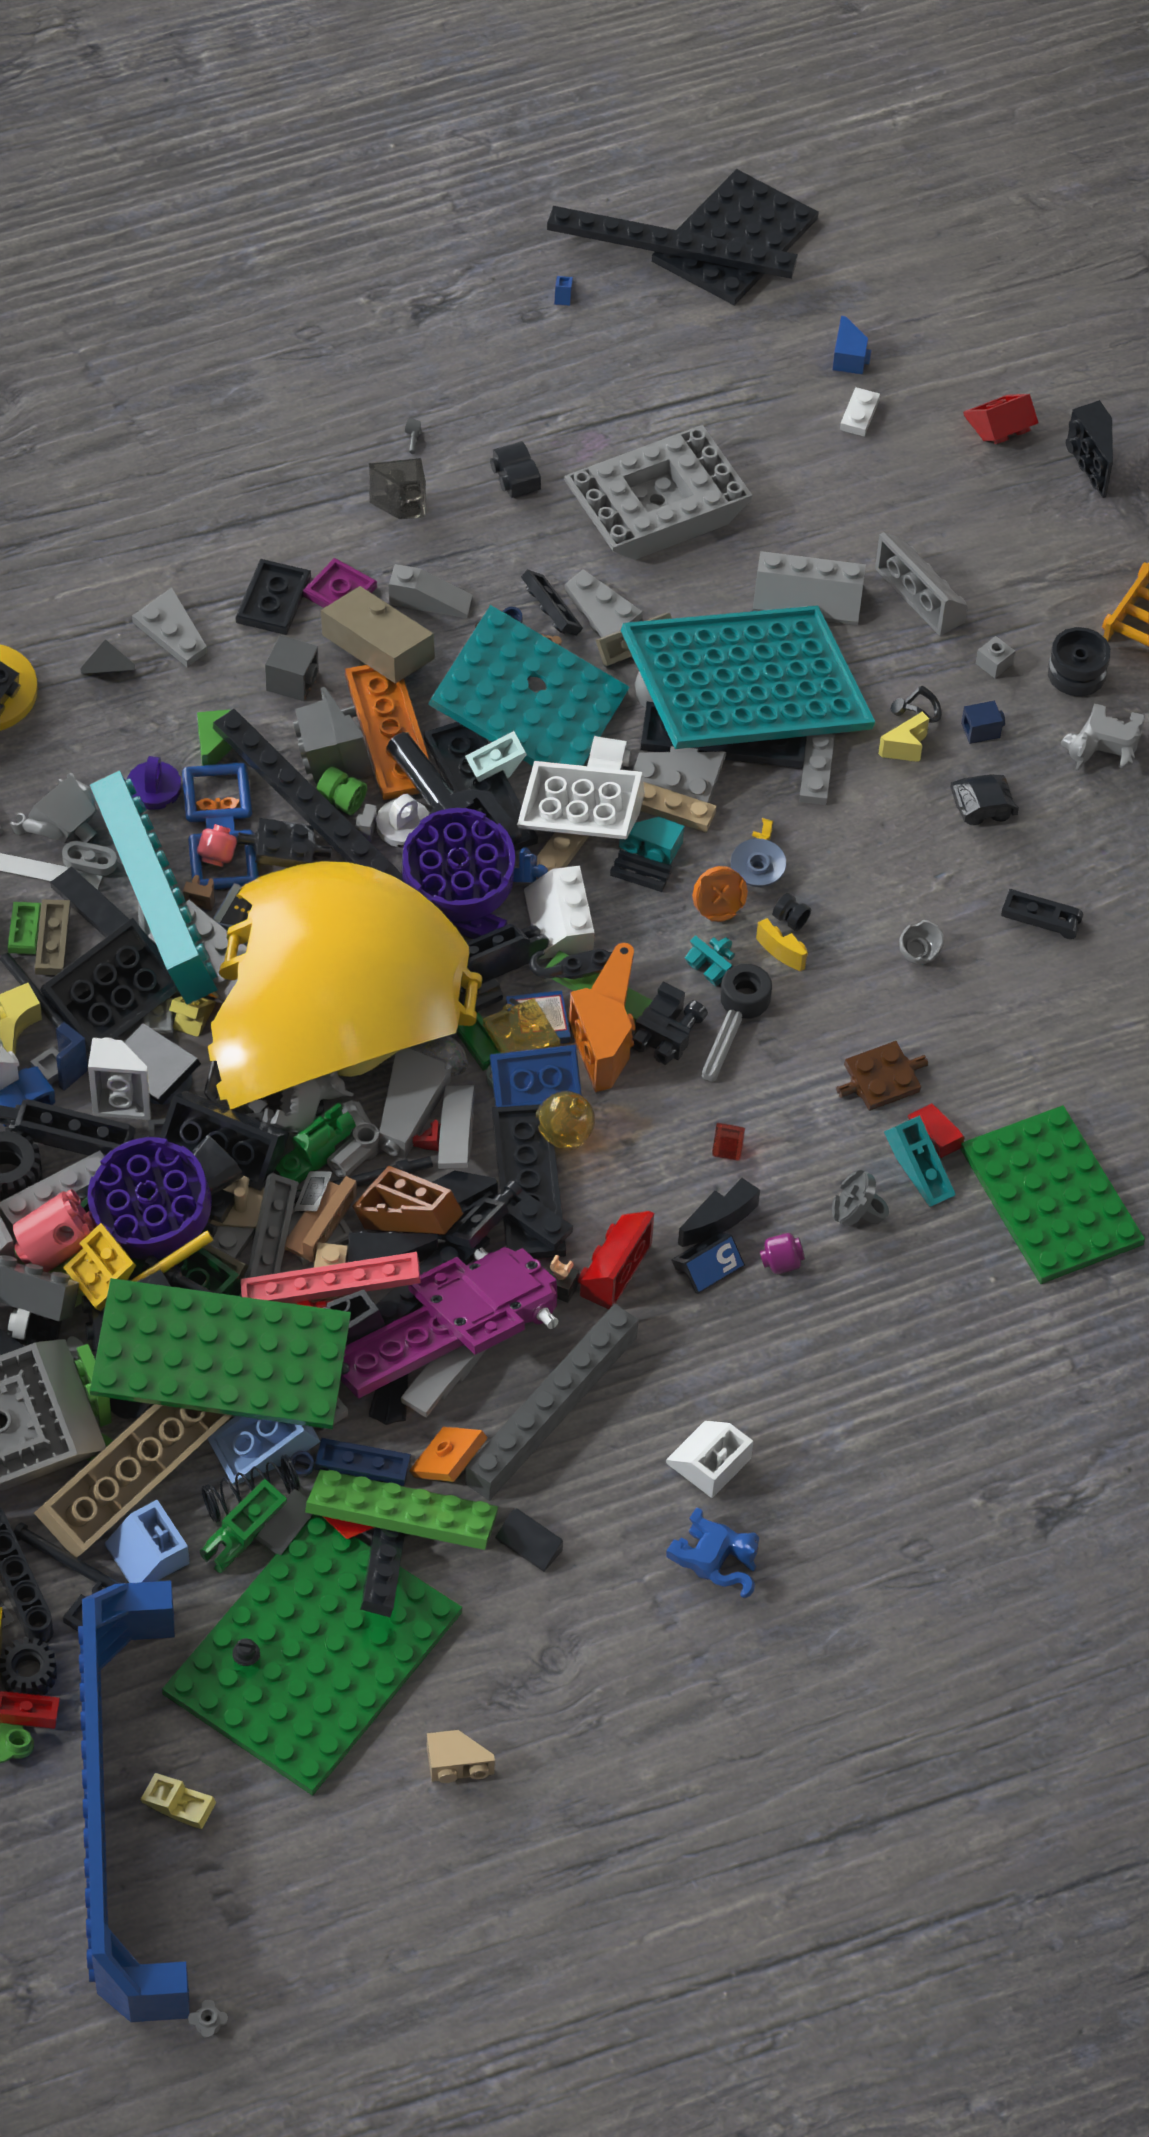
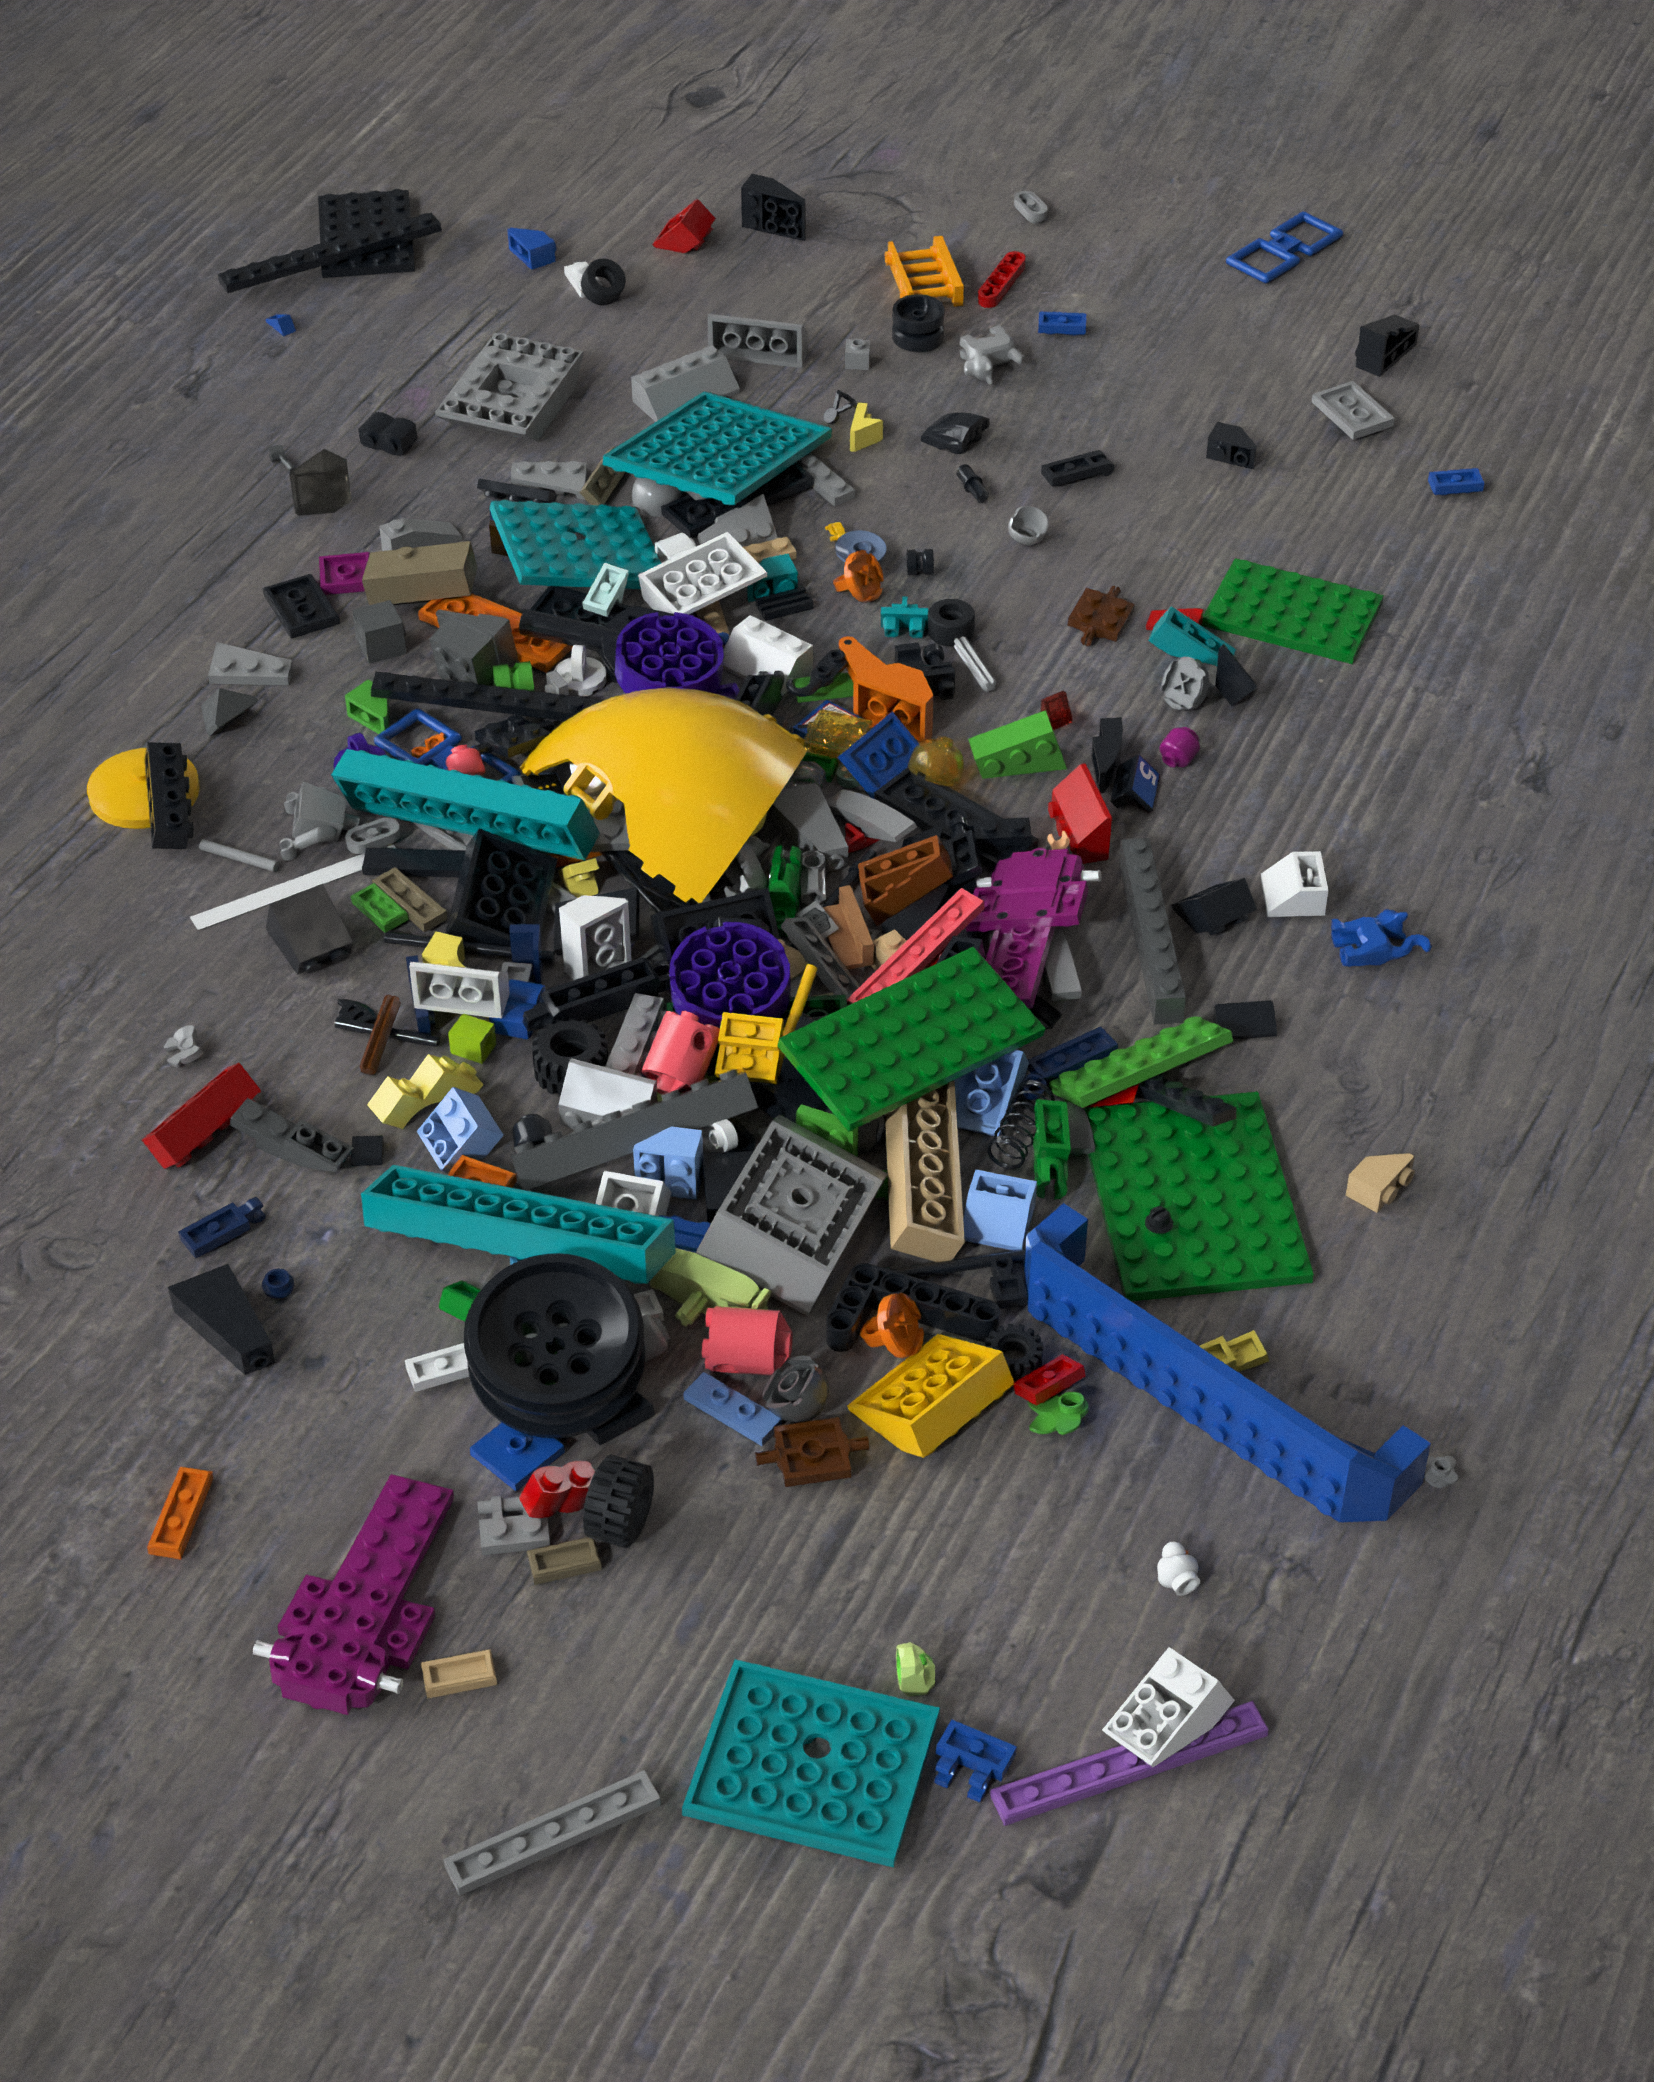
camera: 40 degrees left, 10 degrees down
(448, 1454) = (1128, 1005): orange plate -> none
(629, 1421) = (1217, 906): none -> black slope
(650, 1155) = (1018, 748): none -> bright green wedge
(785, 949) = (947, 584): yellow slope -> none
(867, 413) = (610, 271): none -> black tyre
(907, 1217) = (1232, 678): none -> black slope
(934, 863) = (972, 483): none -> black axle
(982, 722) = (898, 391): dark blue brick -> none

